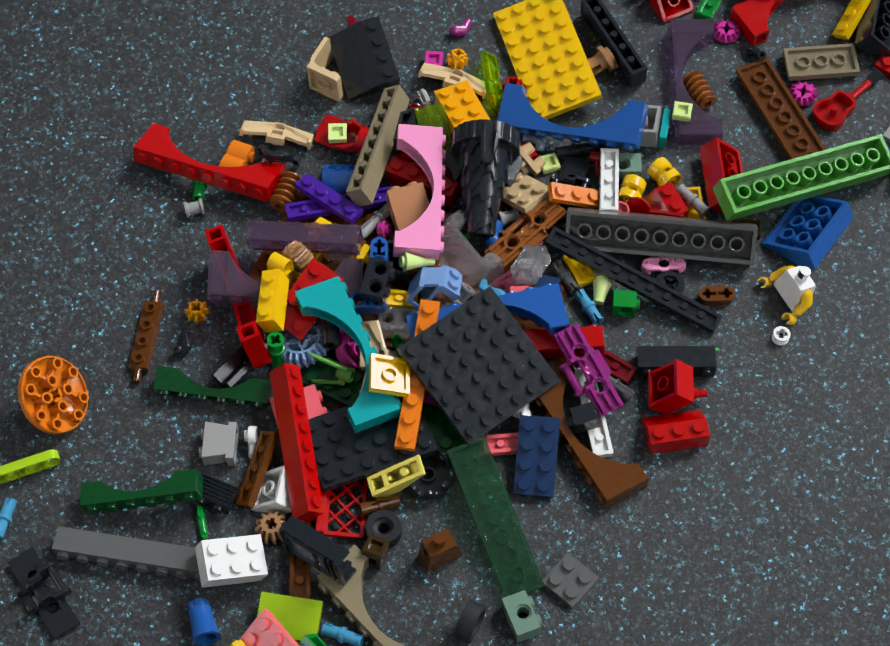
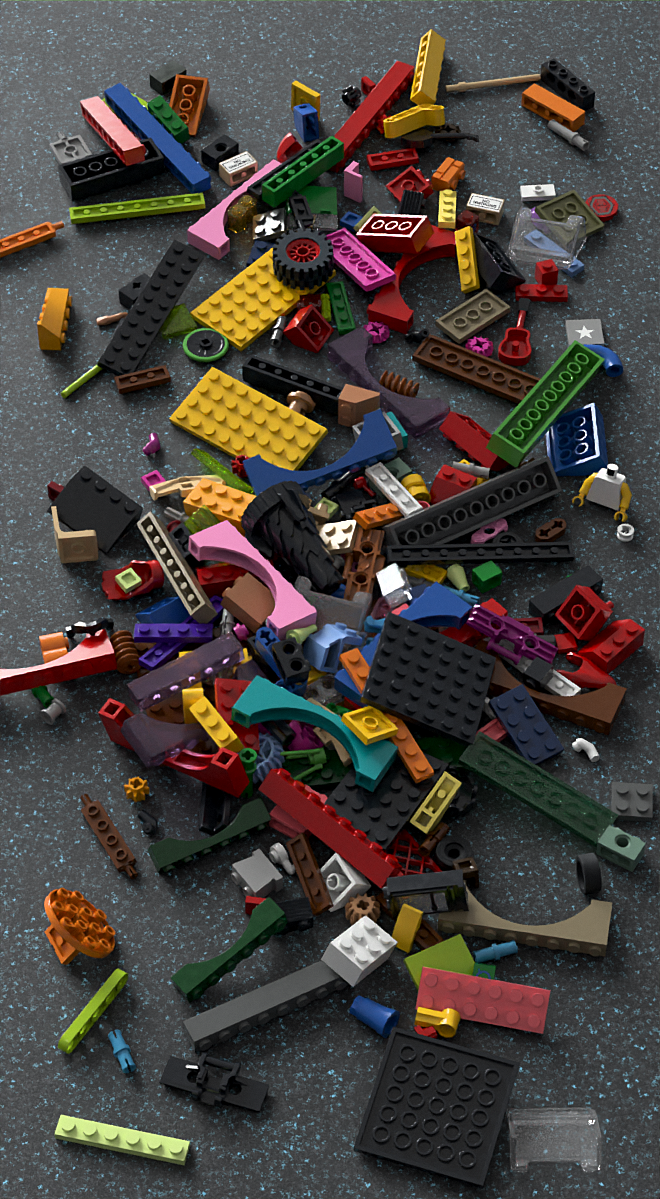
camera: 40 degrees left, 10 degrees down
(194, 463) = (251, 903): none -> red tile
(201, 519) = (295, 944): green piece -> none
(277, 133) = (70, 612): tan plate -> none
(286, 565) = (406, 927): none -> yellow slope
(298, 254) = (199, 680): medium nougat gear -> none
(440, 550) = (518, 834): reddish brown torso -> none
(457, 59) = (174, 468): light orange gear -> none
(576, 508) = (581, 744): none -> white arm
(632, 445) = (588, 675): none -> red animal
(639, 403) = (565, 643): none -> red tile
(641, 206) = (436, 495): red piece -> none
(646, 87) = (355, 403): none -> nougat slope
(663, 173) = (428, 463): yellow wheel -> none
(682, 111) = (403, 407): yellowish green tile -> none

